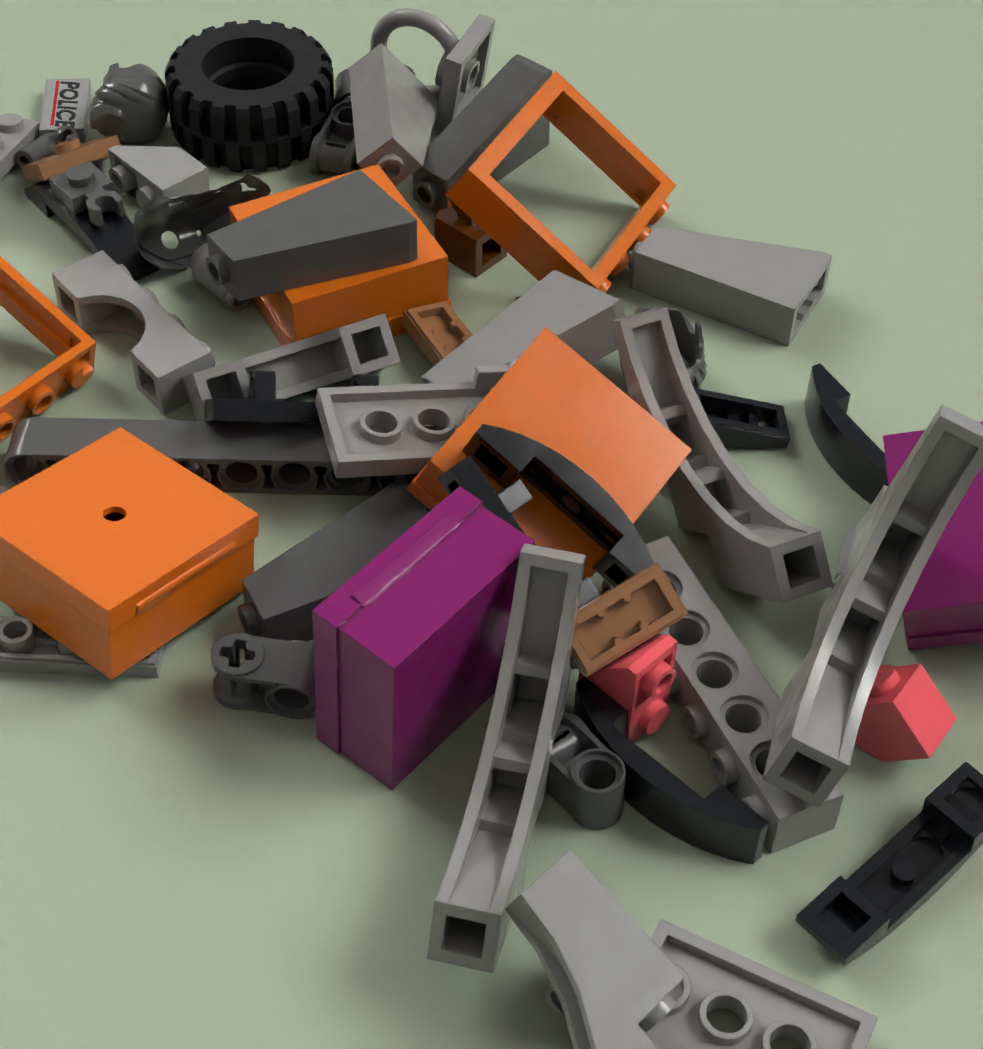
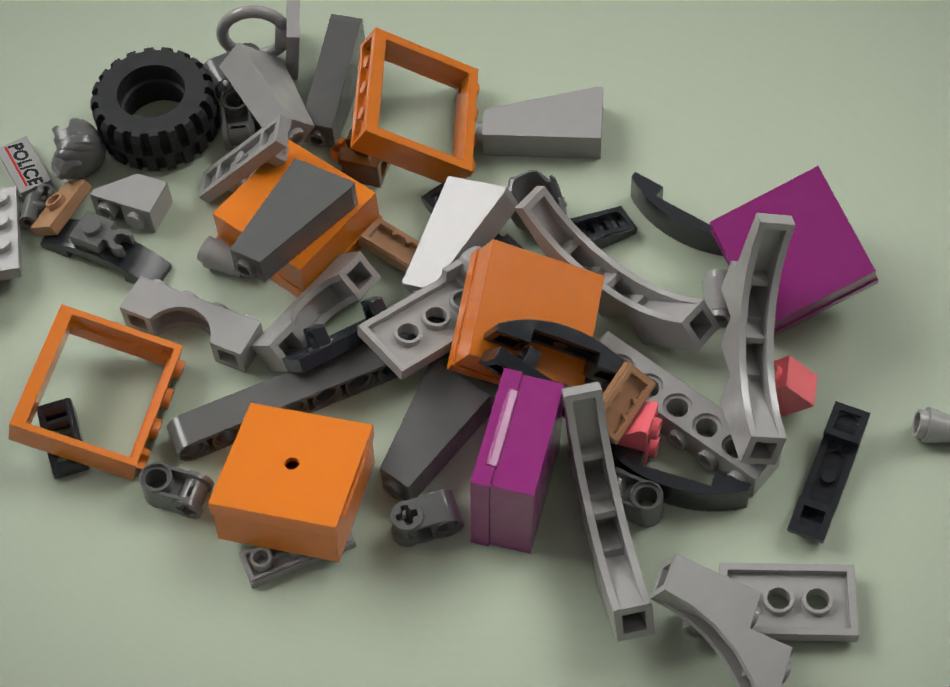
camera: 20 degrees left, 10 degrees up
(200, 212) = (195, 226): dark grey piece -> none
(336, 155) = (235, 168): none -> light grey hinge

